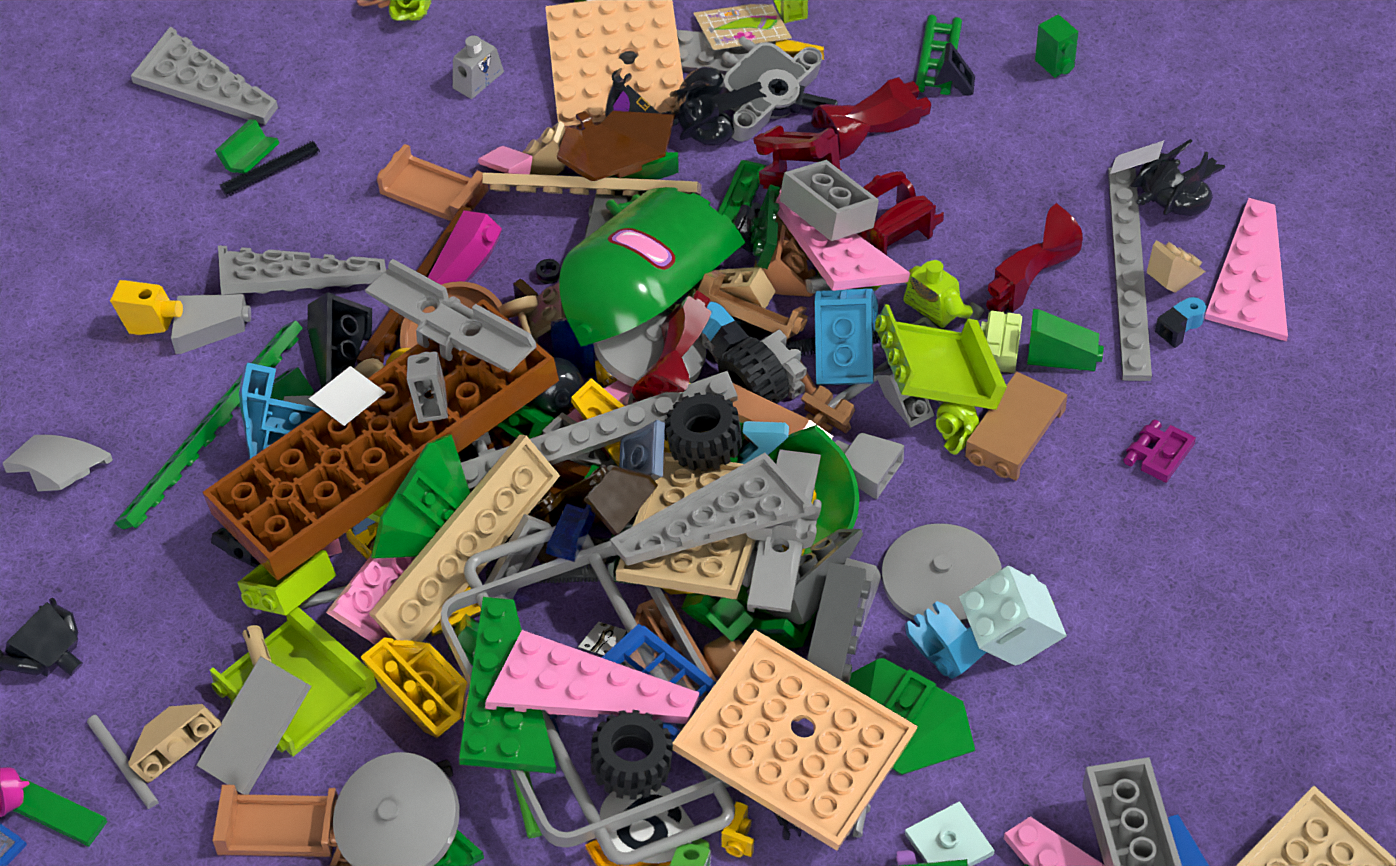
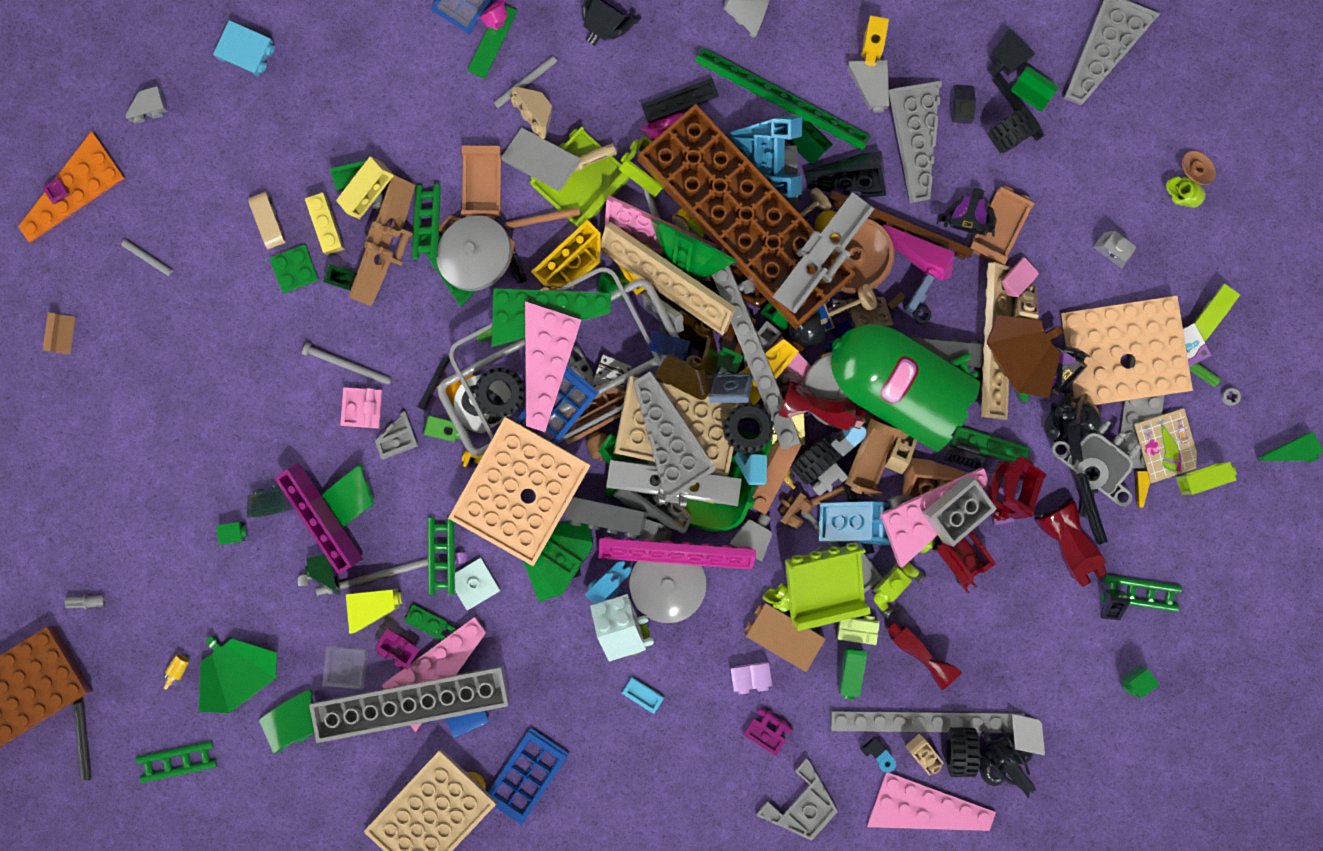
camera: 85 degrees right, 35 degrees up
(191, 551) = (680, 100): none -> black plate
(194, 173) = (1009, 54): none -> black torso
(227, 566) = (657, 127): none -> dark pink piece
(257, 220) = (964, 104): none -> pearl dark grey slope
(301, 159) = (1013, 130): none -> black tyre
(347, 395) = (772, 189): white sticker -> none
(349, 728) = (542, 218): none -> nougat bar
(414, 207) = (970, 214): none -> black torso
(425, 374) = (768, 242): light grey torso -> none
(518, 261) = (920, 294): none -> sand blue plate
(765, 229) = (936, 466): dark green wing -> none
(824, 91) = (1091, 506): none -> black axle
(893, 544) = (672, 553): none -> dark pink plate
(1079, 467) = (751, 677): none -> lavender brick
(1117, 608) = (643, 695): none -> medium azure tile
(1168, 215) = (962, 752): none -> black tyre
(1210, 738) = (546, 745): none -> blue piece
(1271, 401) = (808, 812): none -> light grey wing

